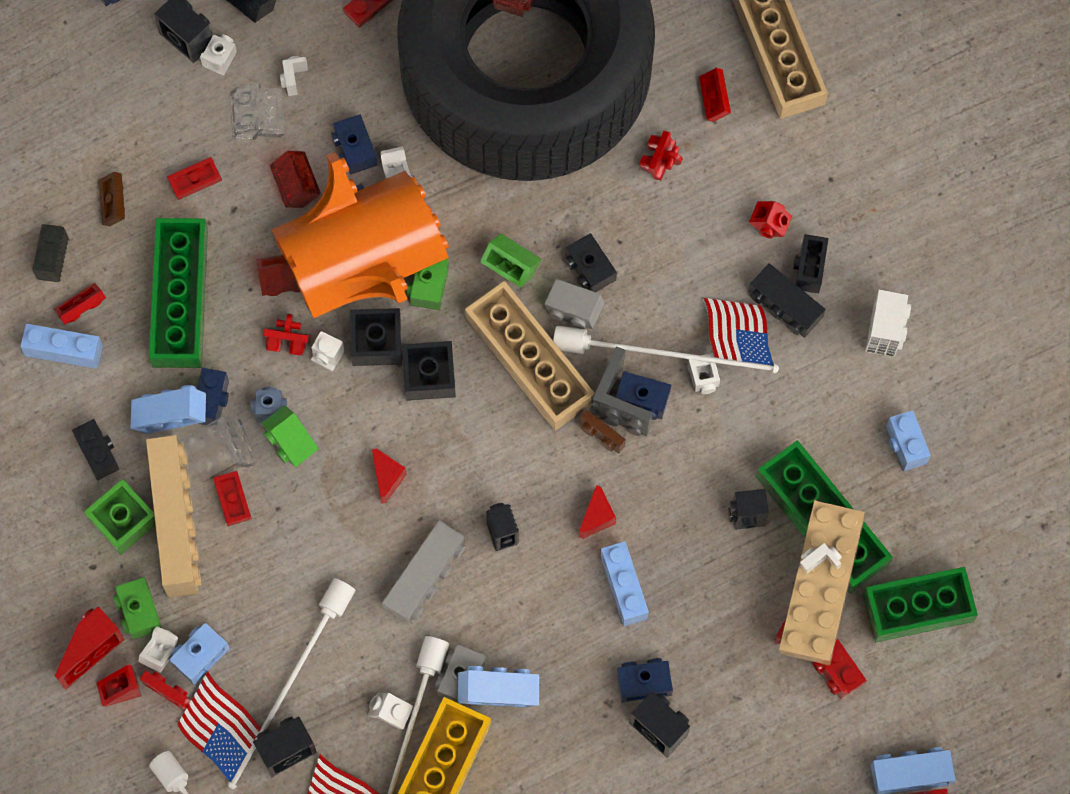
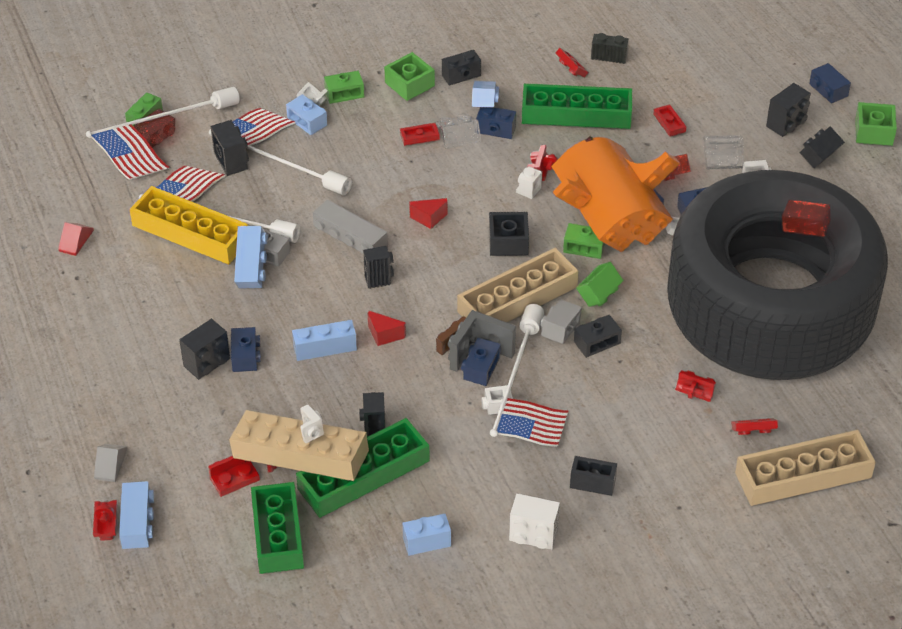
camera: 95 degrees right, 25 degrees down
(61, 346) = (539, 53): light blue brick -> none
(90, 643) = (317, 55): red slope -> none
(112, 199) = (659, 79): reddish brown plate -> none
(119, 686) = (290, 80): red slope -> none
(157, 684) = (285, 95): red plate -> none
(172, 517) = (406, 97): tan brick -> none
(220, 60) = (771, 134): white brick -> none
(270, 396) = (487, 147): sand blue brick -> none
(289, 436) = (460, 155): bright green brick -> none
(376, 337) = (540, 204): black brick -> none
(390, 709) = (248, 208): white bracket -> none
(770, 219) = (637, 444): red brick -> none
(786, 301) = (558, 460): black brick -> none

